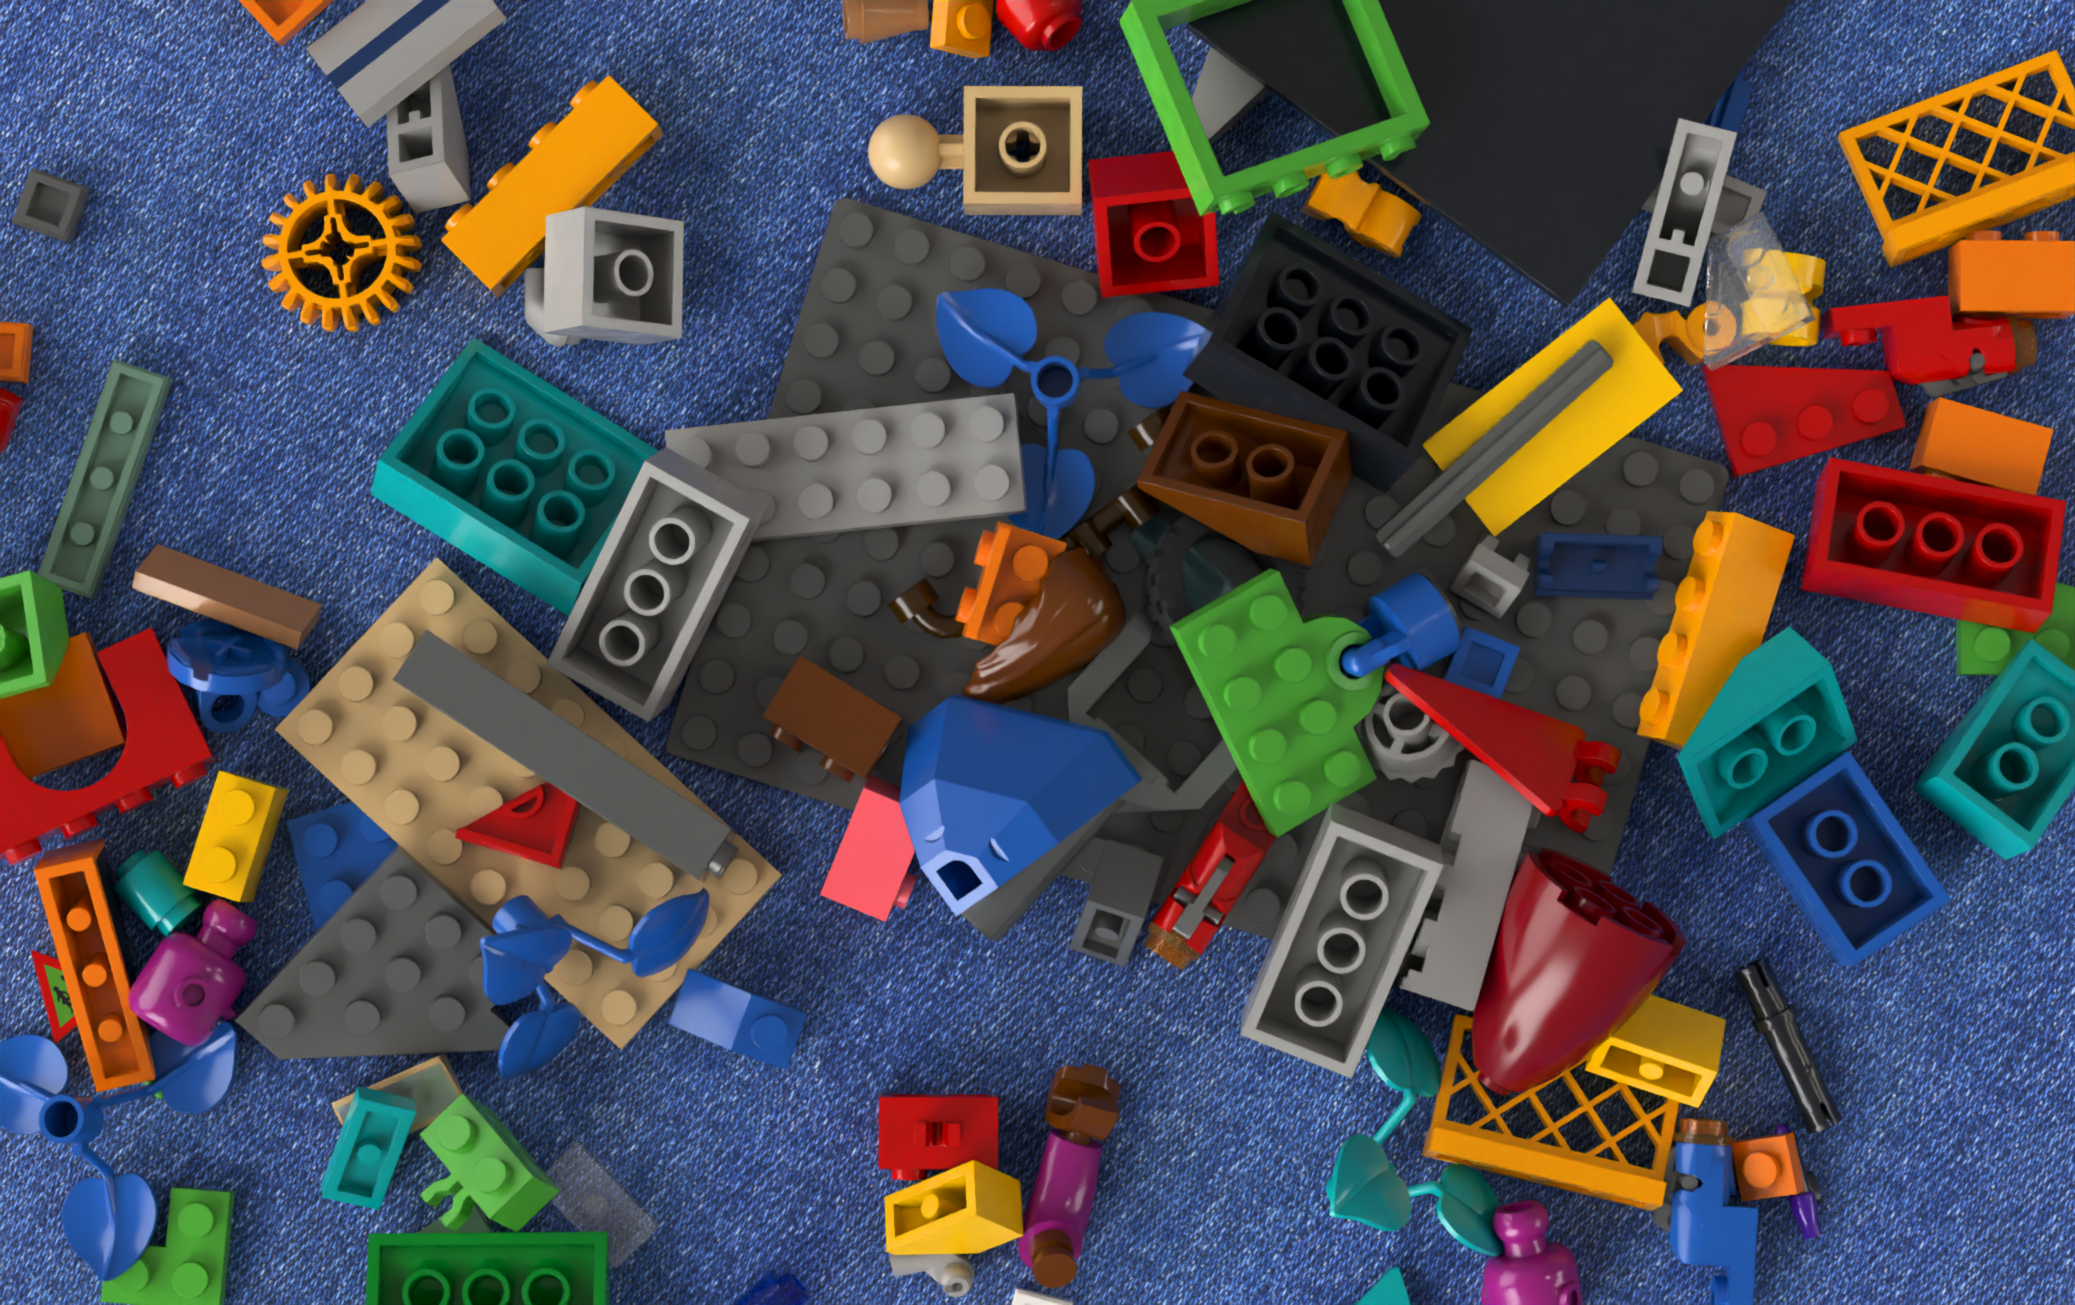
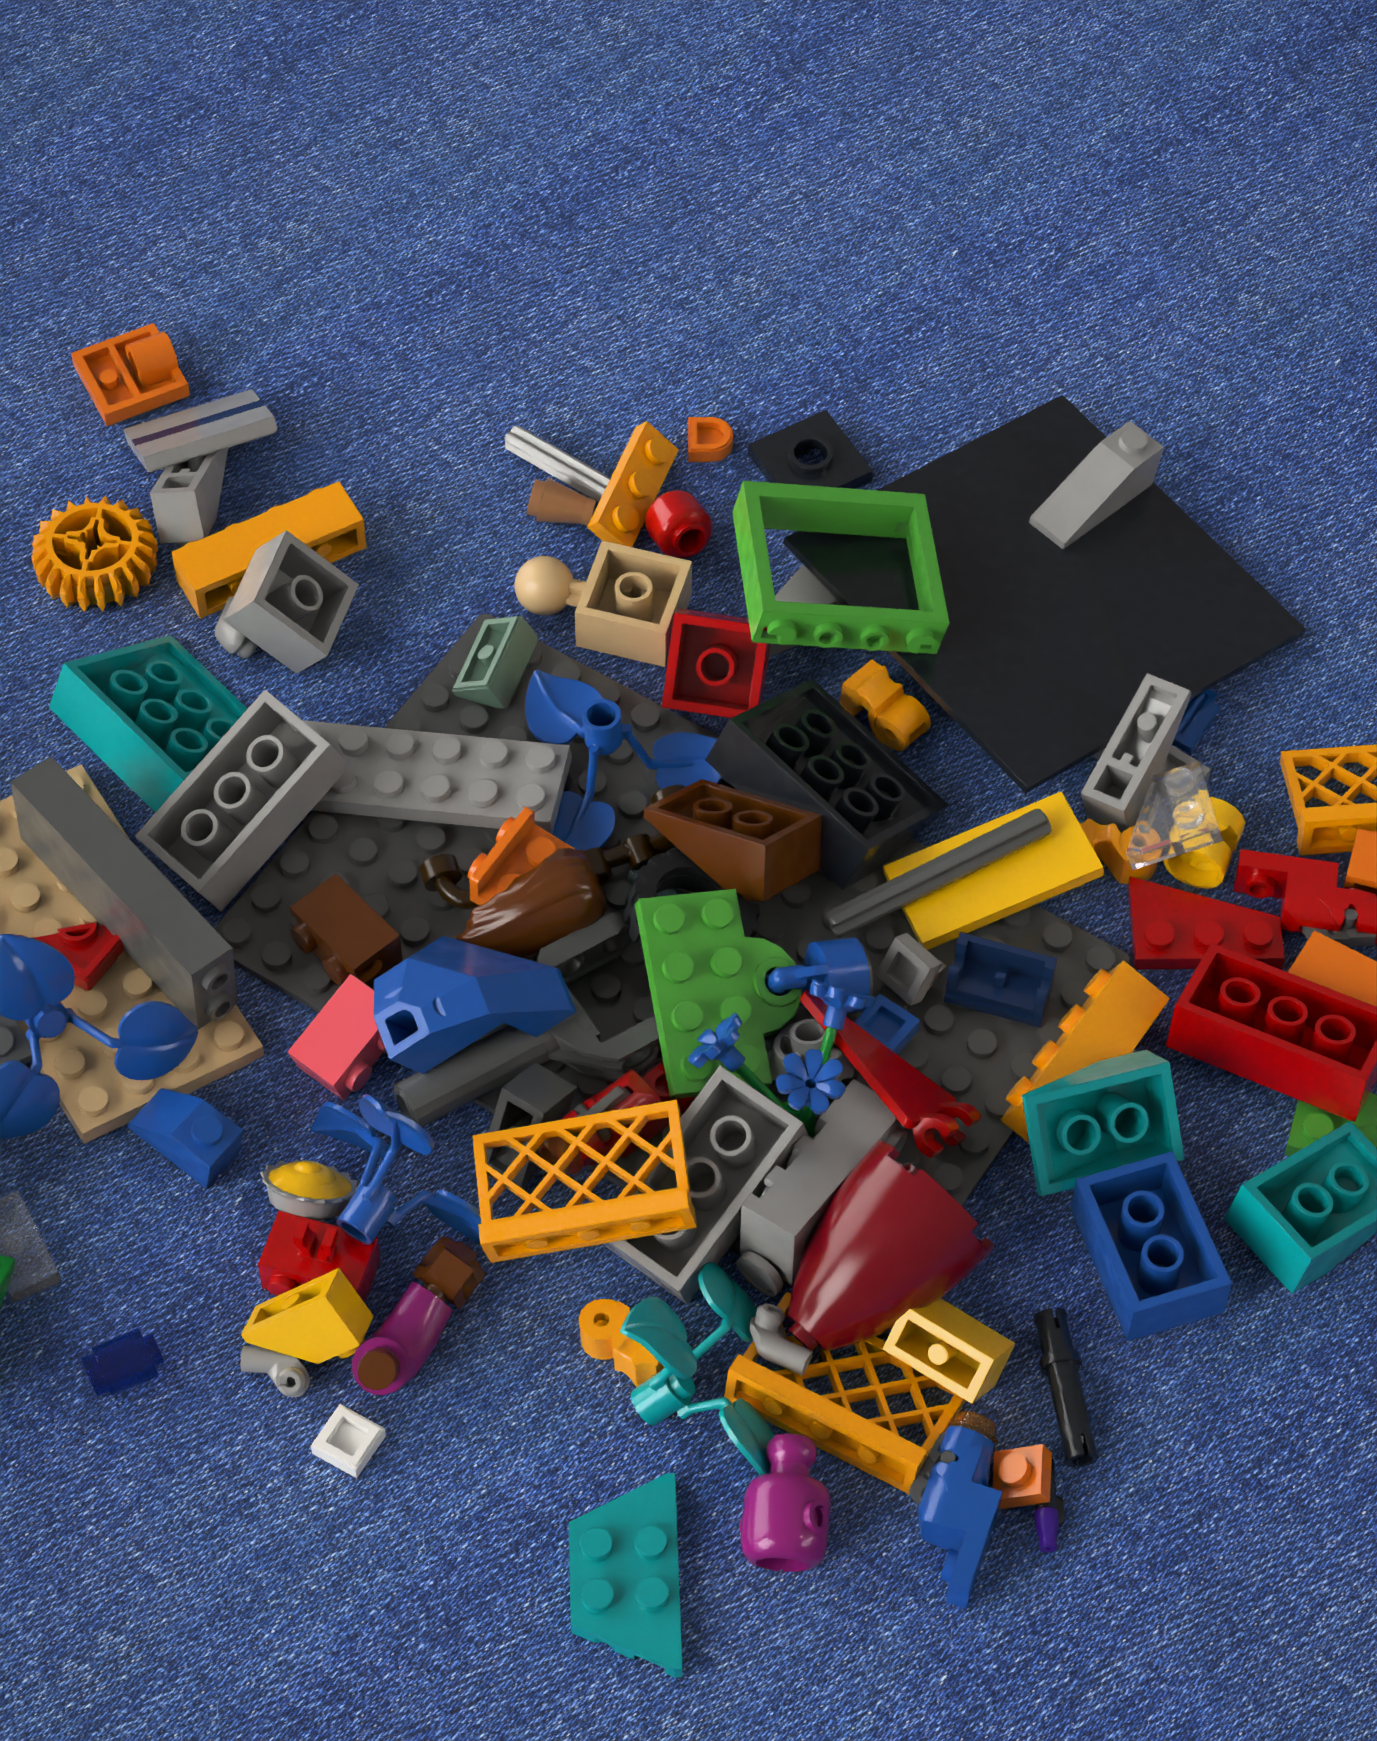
camera: 15 degrees right, 30 degrees down
(880, 277) = (496, 662): none -> sand green slope
(899, 1048) = (308, 1189): none -> piece
(986, 1075) = (372, 1201): none -> blue plant
(1234, 1040) = (578, 1223): none -> light orange fence
(1279, 1120) = (601, 1339): none -> light orange leg
(1423, 1006) = (759, 1273): none -> light grey piece
(1430, 815) = (806, 1081): none -> blue plant
(1463, 1095) = (772, 1343): none -> light grey arm

